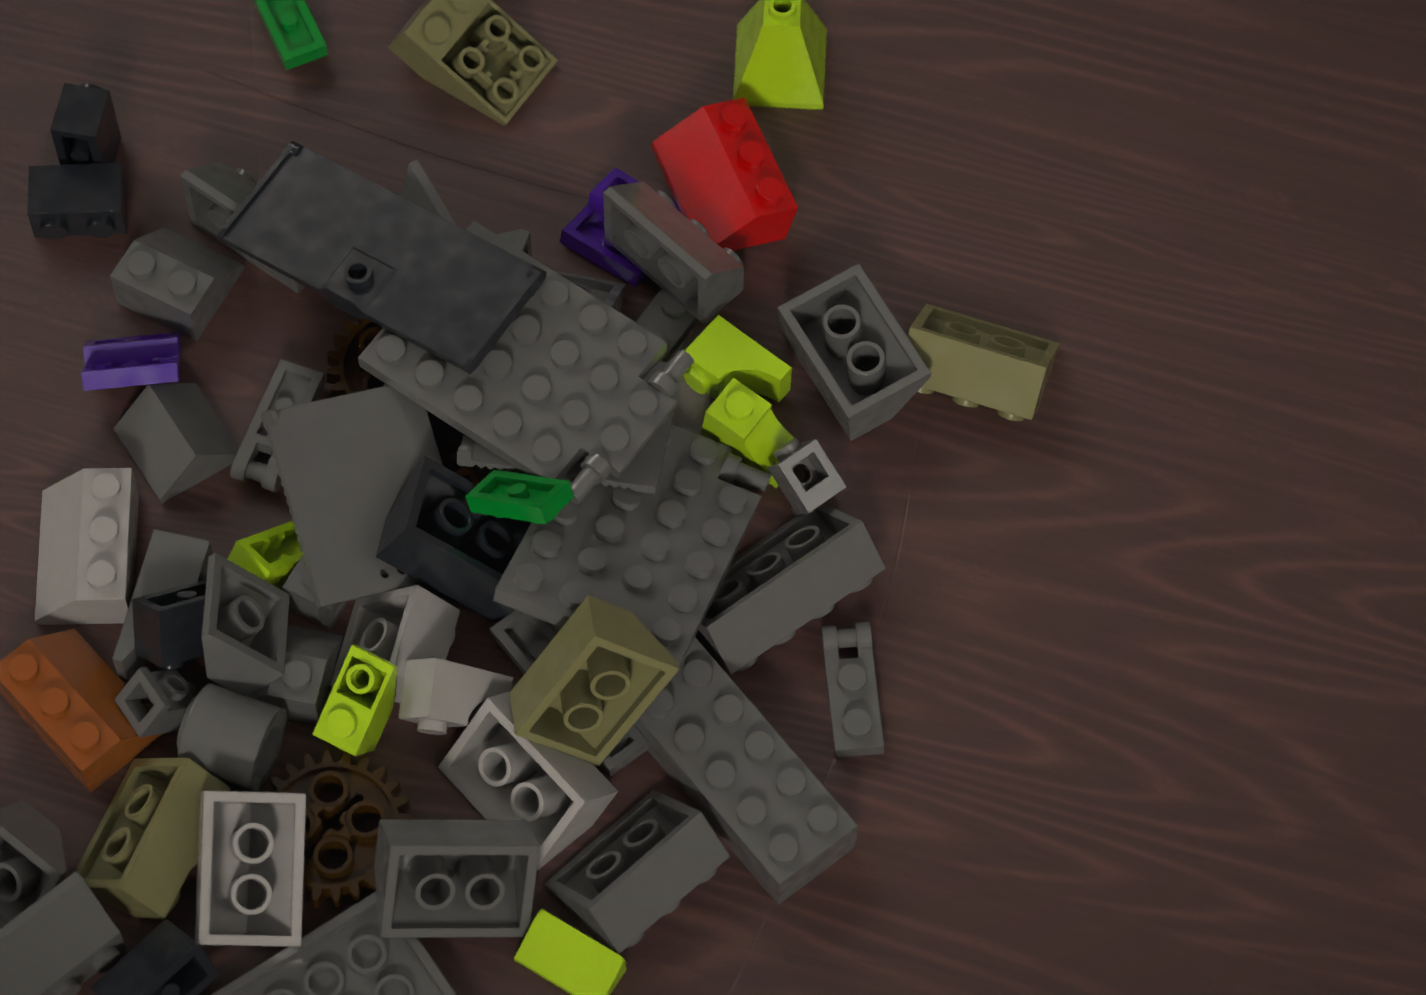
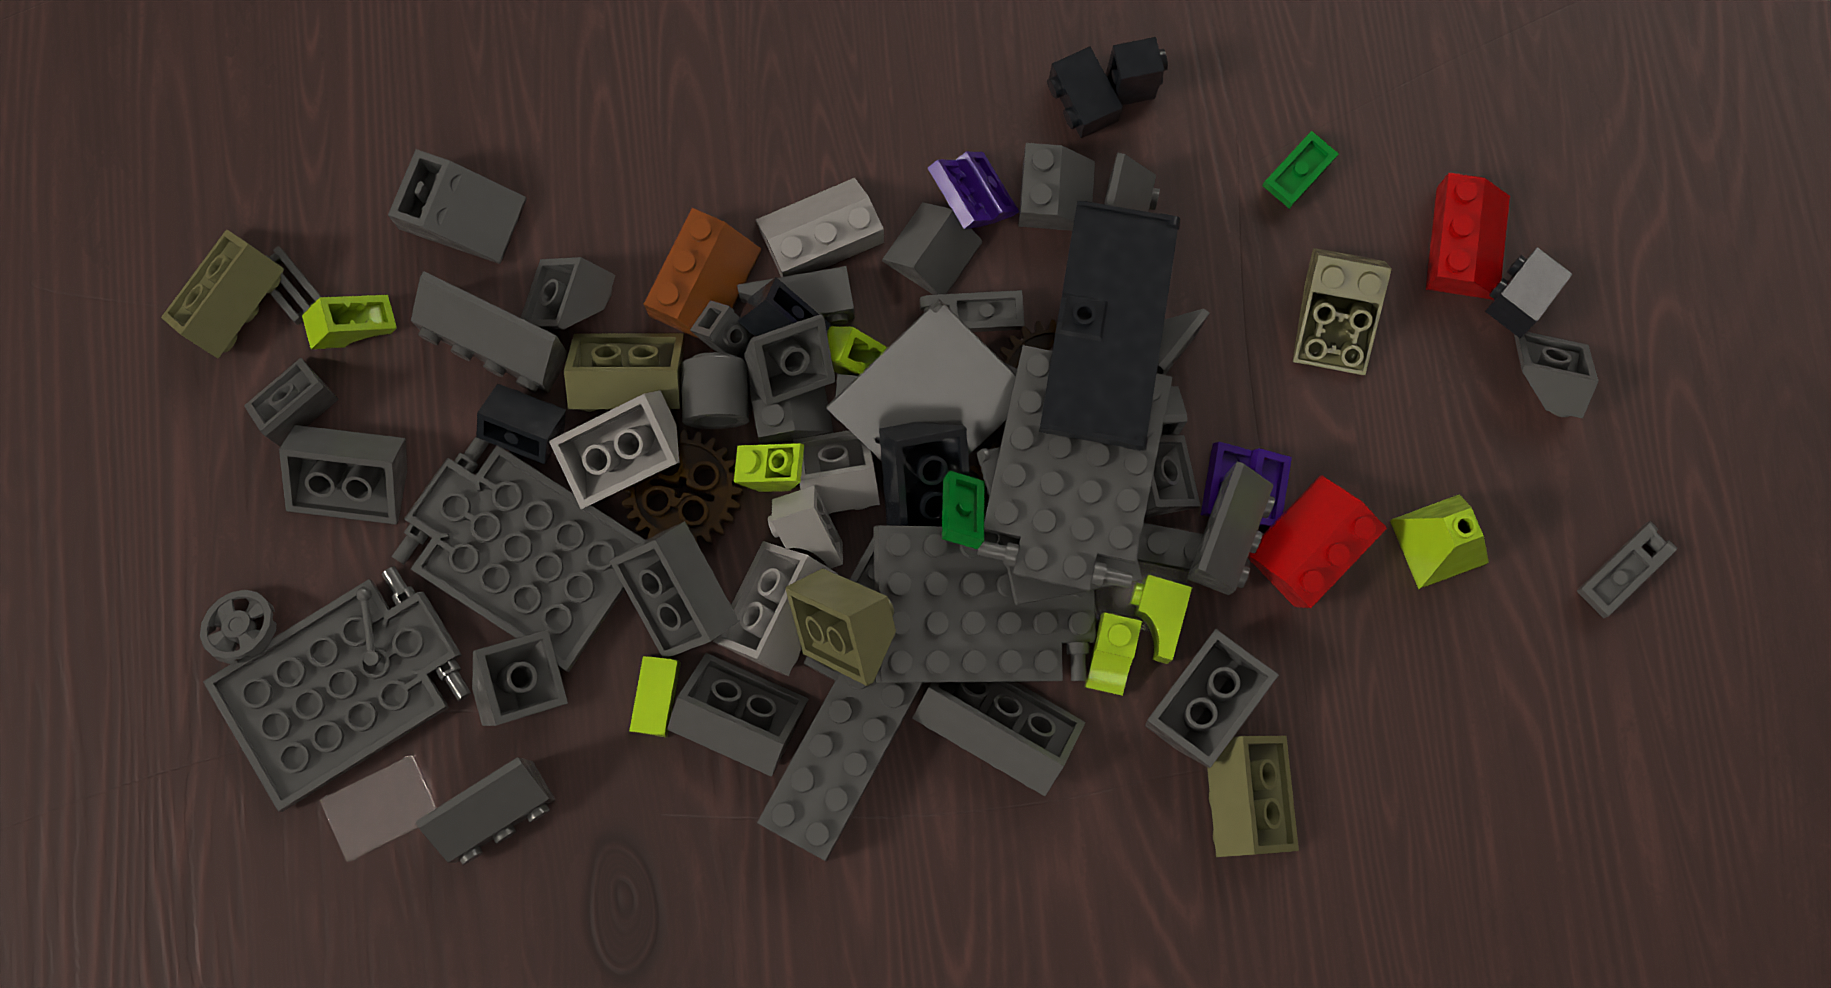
camera: 65 degrees right, 15 degrees up
(820, 477) = (1092, 717): dark grey brick -> none
(852, 691) = (943, 809): dark grey plate -> none

